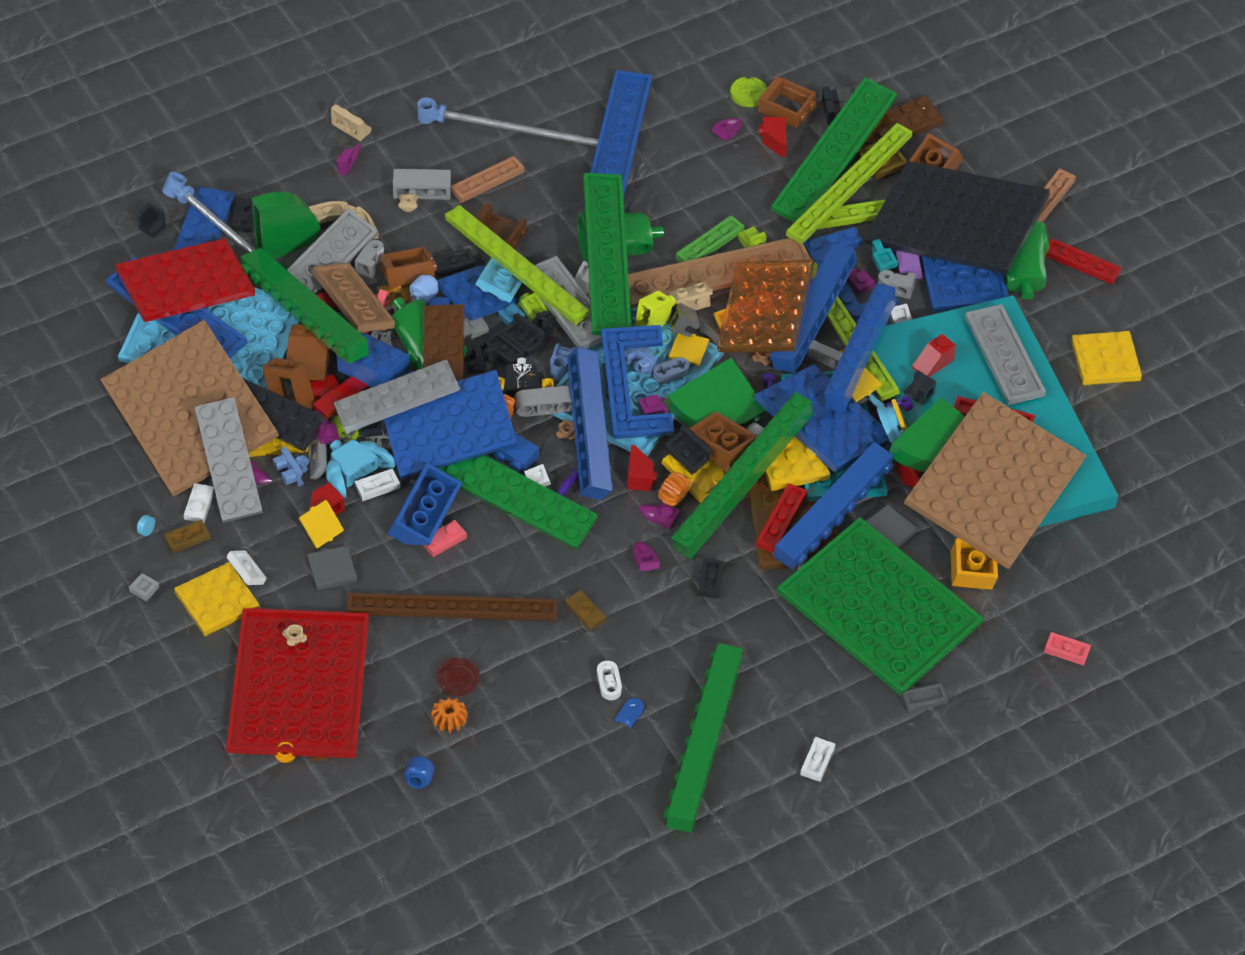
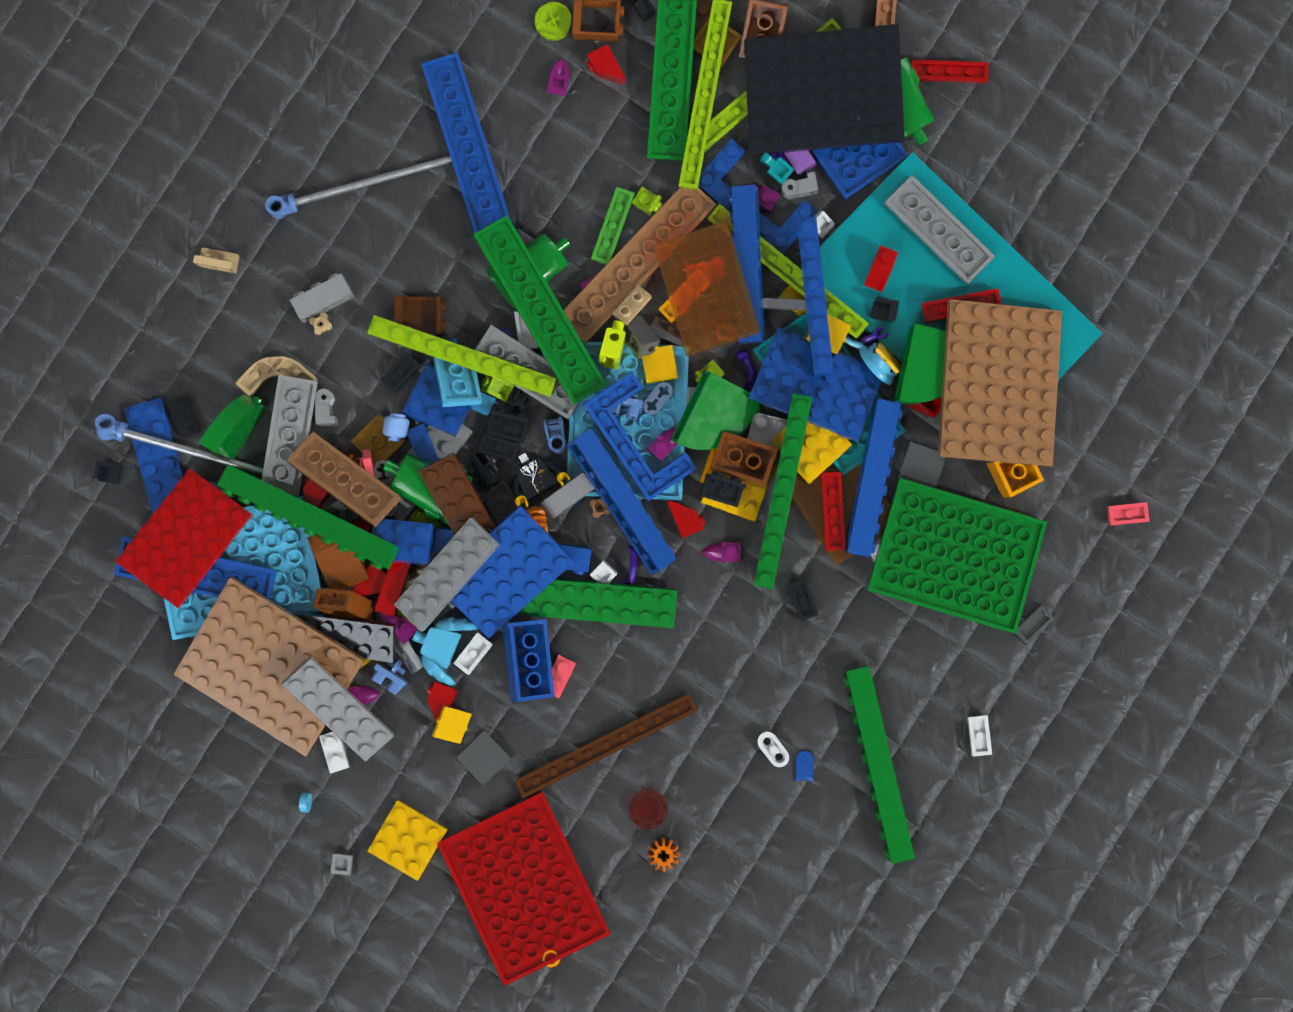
camera: 20 degrees left, 35 degrees up
(187, 536) = (346, 793): pearl gold plate -> none
(246, 568) = (414, 799): white plate -> none
(294, 630) = (497, 857): tan plate -> none
(347, 159) = (238, 306): magenta plate -> none
(406, 265) = (356, 396): dark orange window -> none
(419, 772) = (670, 923): blue head -> none
(487, 179) = (376, 259): nougat plate -> none
(585, 610) = (715, 687): pearl gold plate -> none
(645, 557) = (736, 607): magenta plate -> none
(674, 489) = (727, 528): orange gear -> none
(1106, 358) = (1018, 172): yellow plate -> none

